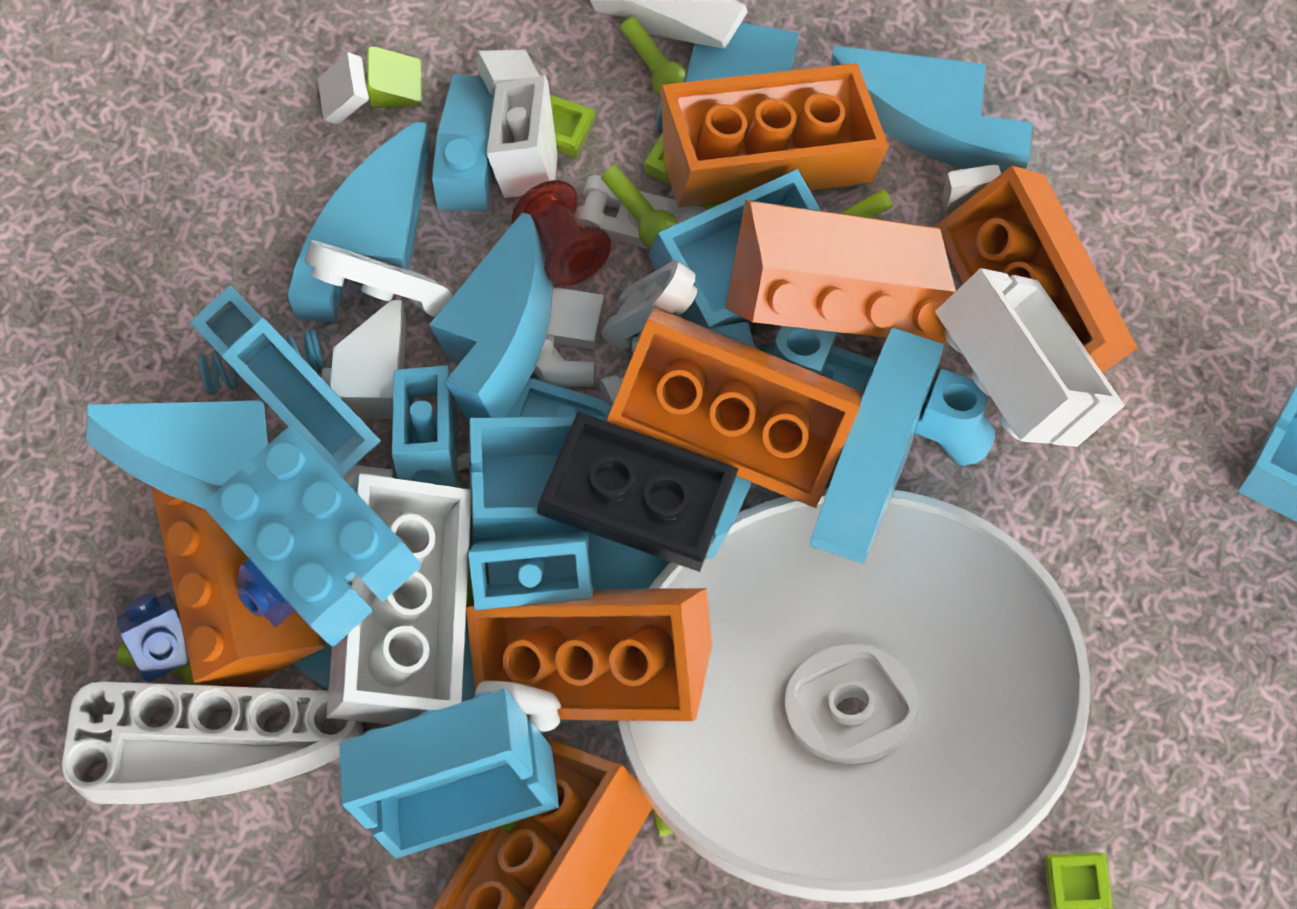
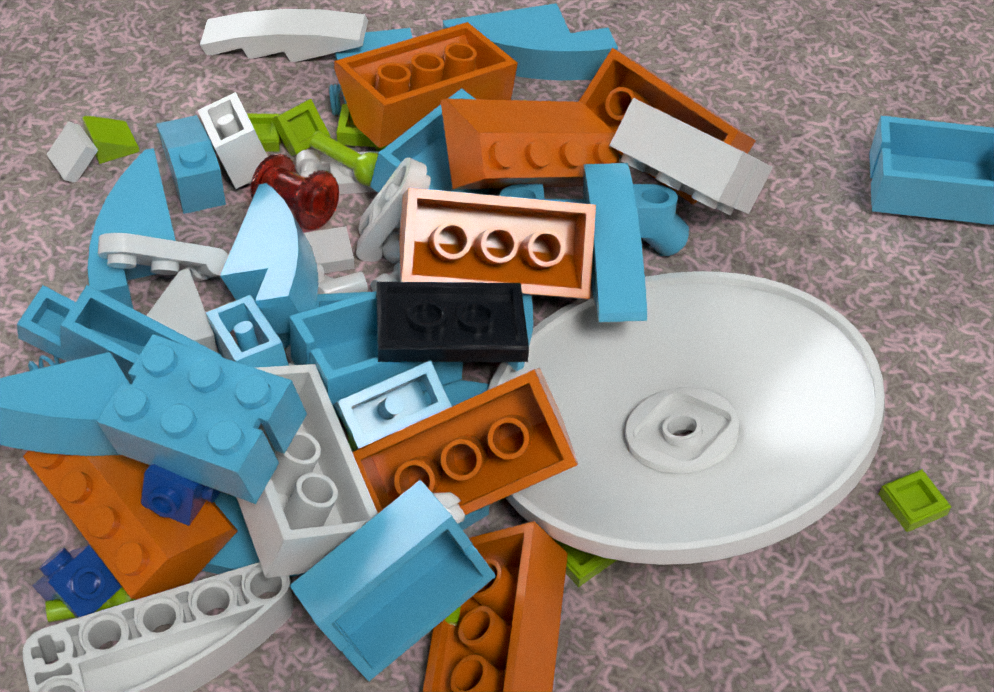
camera: 25 degrees left, 15 degrees down
(504, 66) = (188, 105): white tile -> none
(608, 140) = (299, 126): none -> lime plate
(663, 70) = (318, 78): lime bar -> none
(965, 183) = (579, 79): white tile -> none

